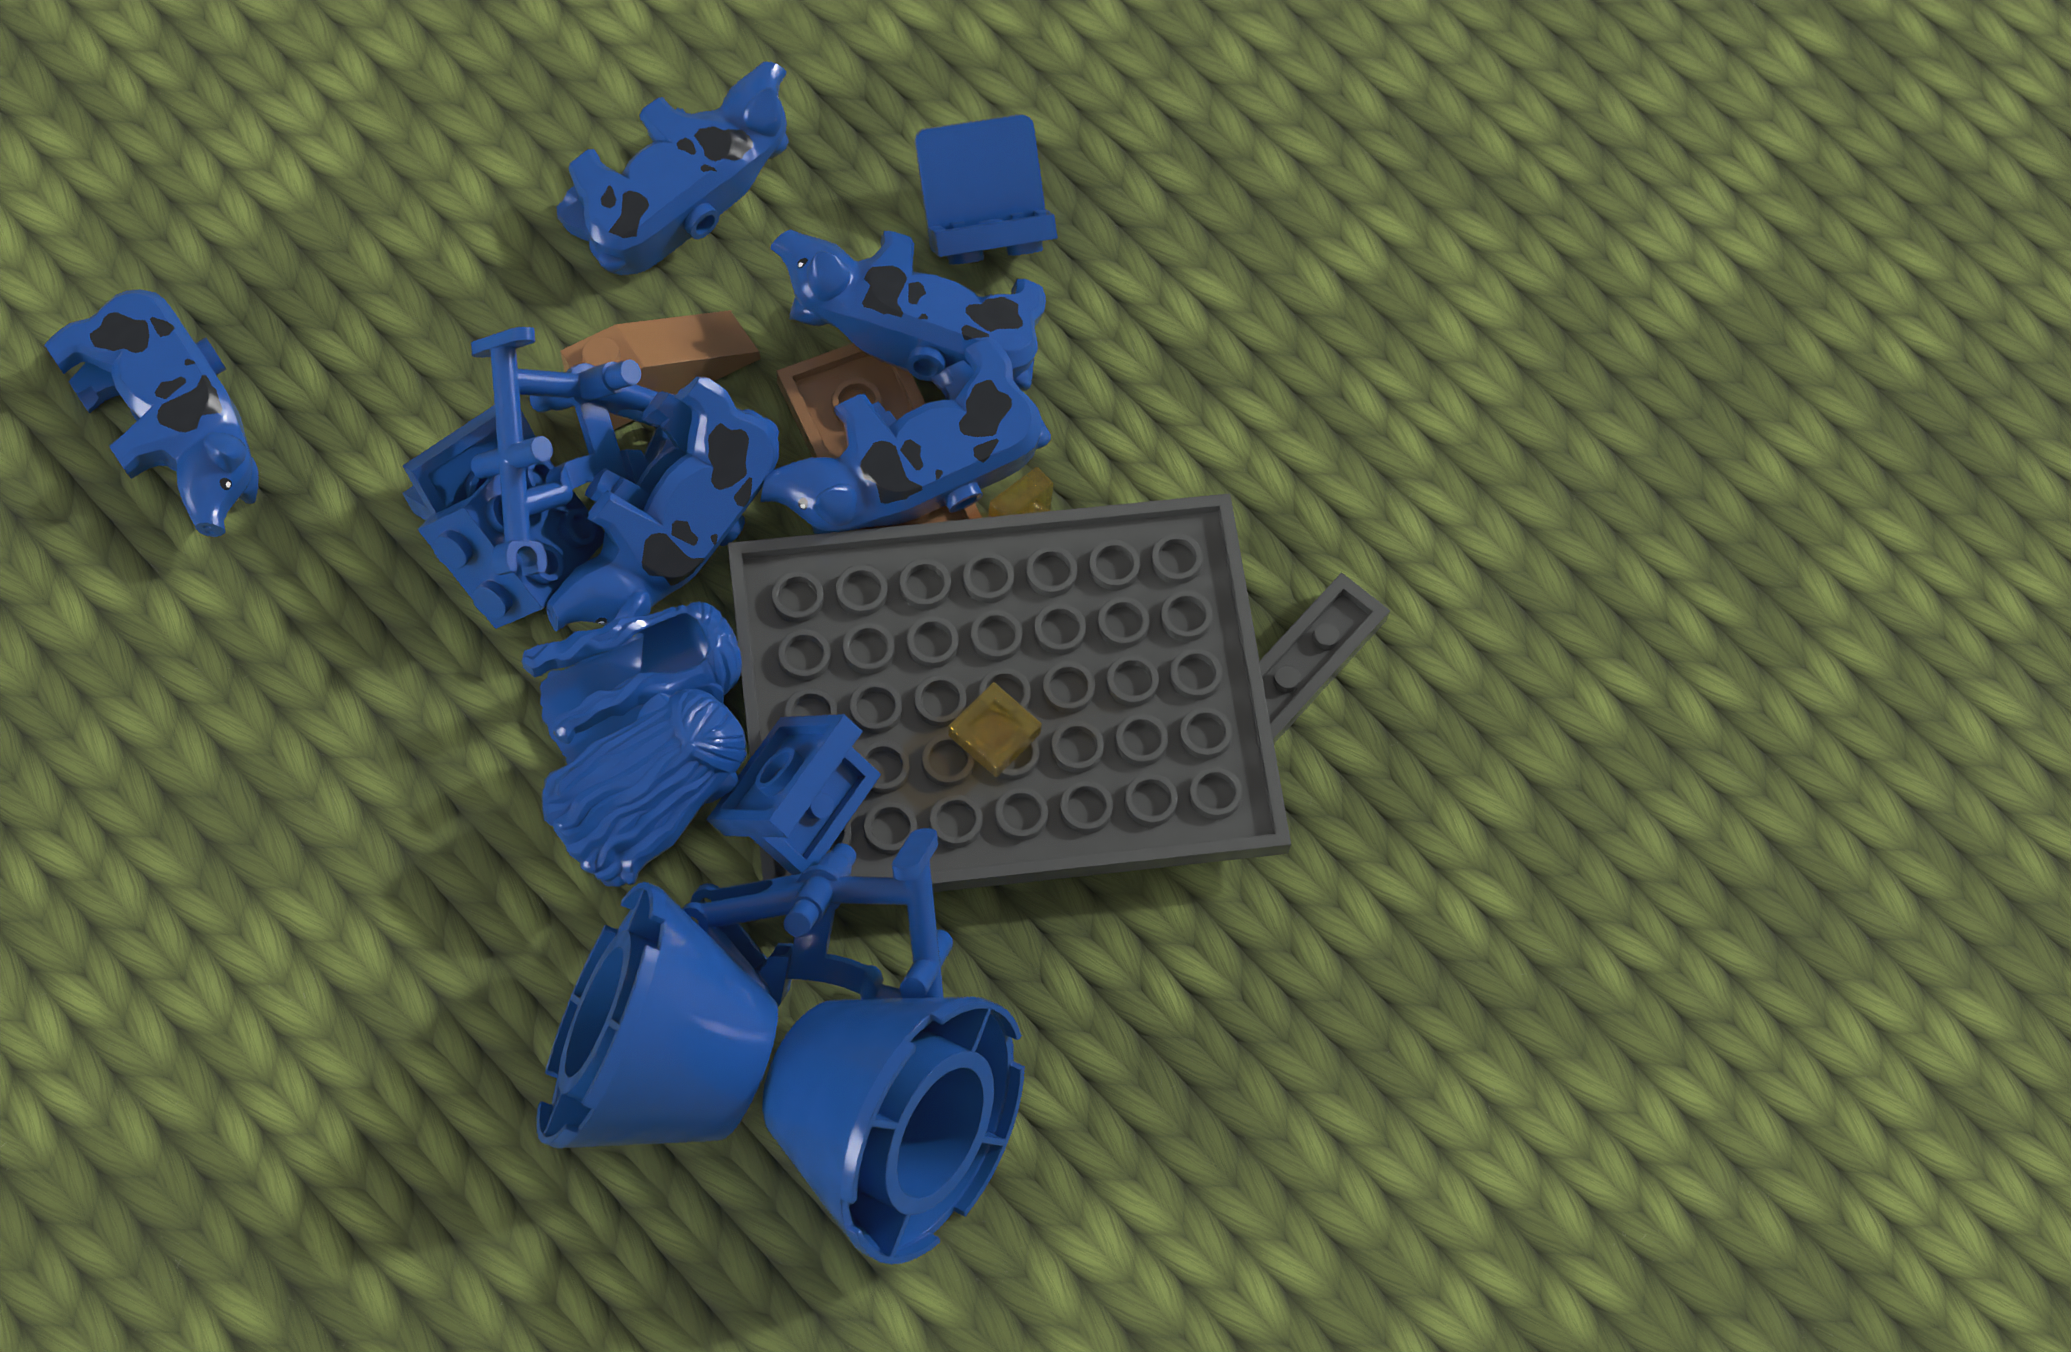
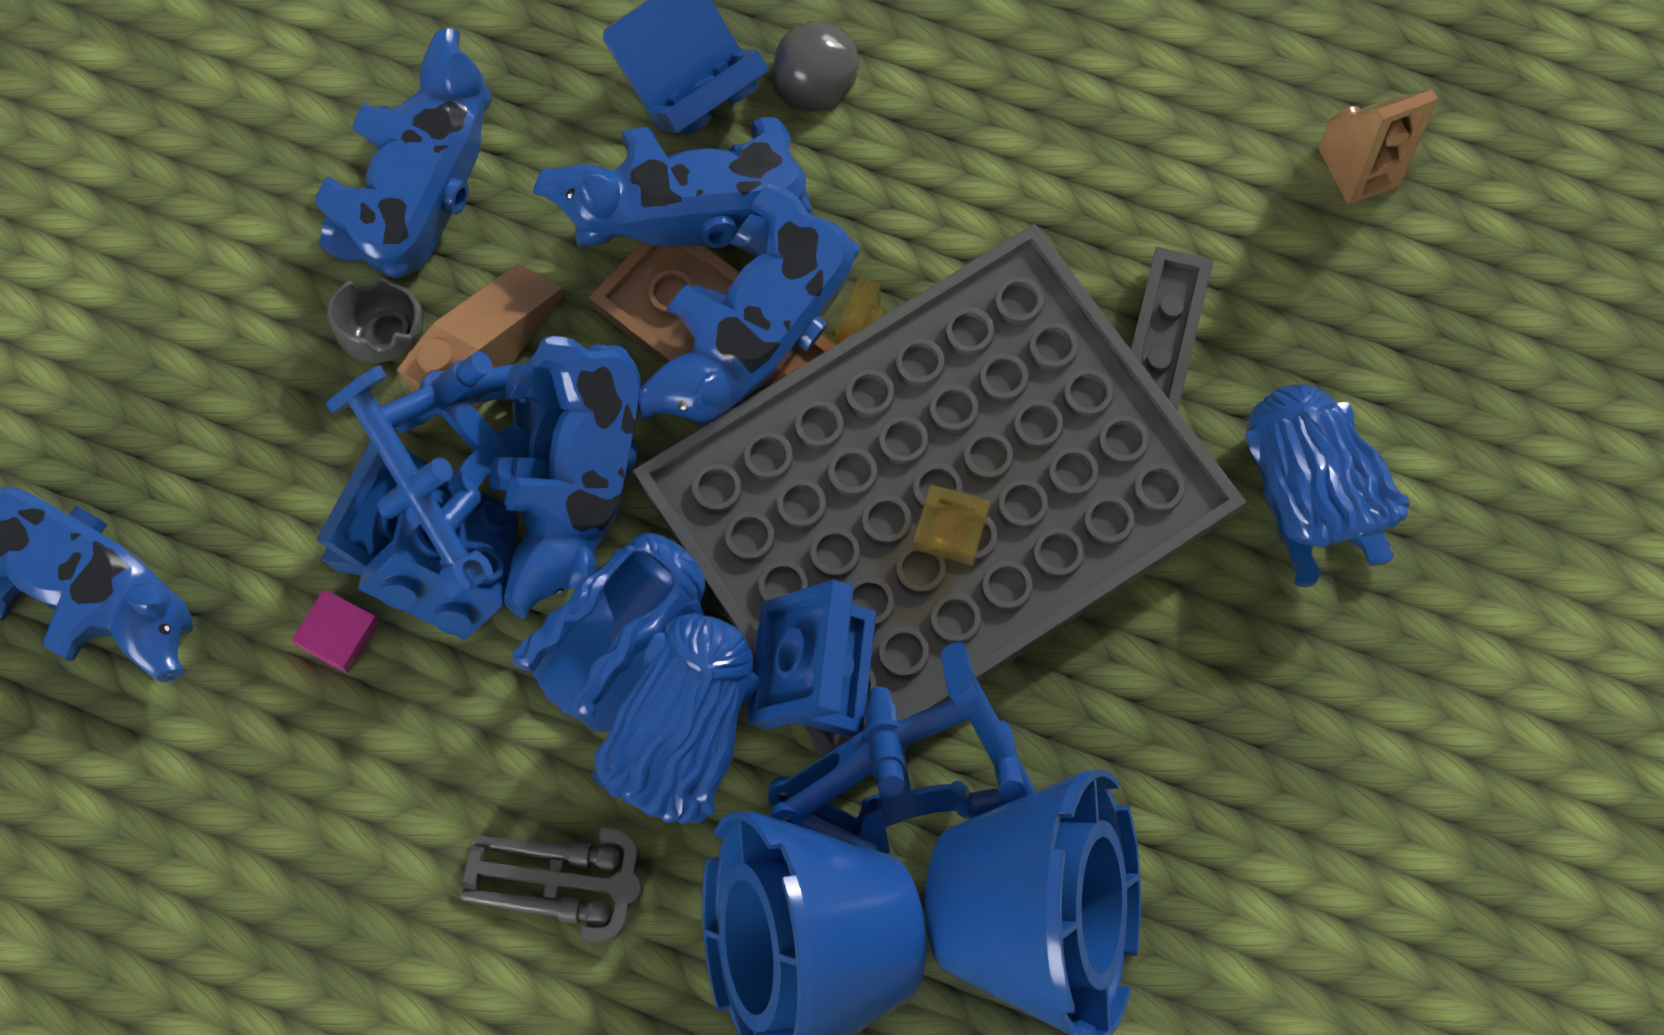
camera: 15 degrees left, 5 degrees up
(381, 564) = (335, 631): none -> dark pink tile
(483, 941) = (623, 887): none -> dark grey piece
(567, 300) = (375, 321): none -> dark grey hair
(1109, 256) = (815, 65): none -> dark grey hair
(1377, 856) = (1321, 478): none -> blue hair
(1602, 575) = (1375, 144): none -> medium nougat slope

